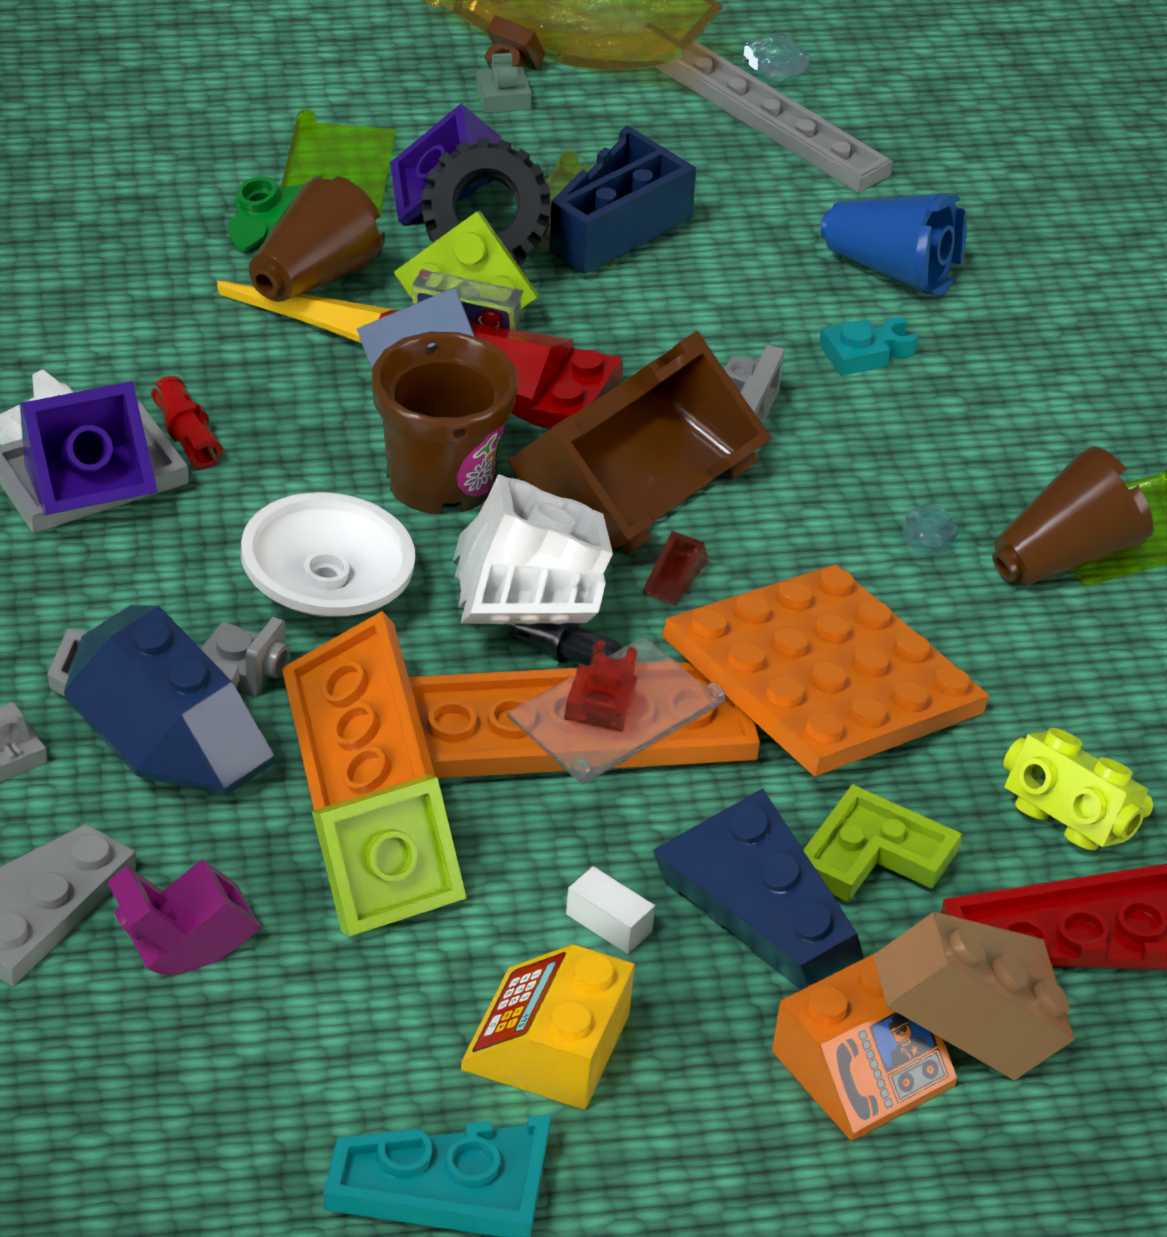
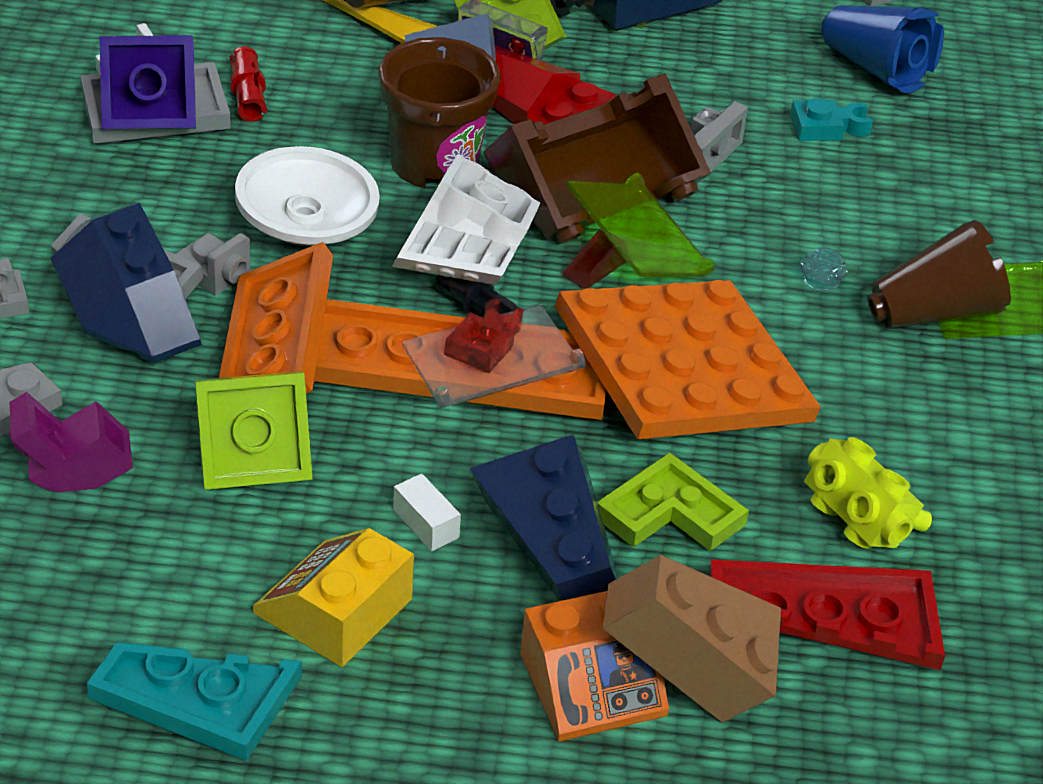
camera: 15 degrees right, 0 degrees up
(715, 520) = (641, 228): none -> clear neon green piece

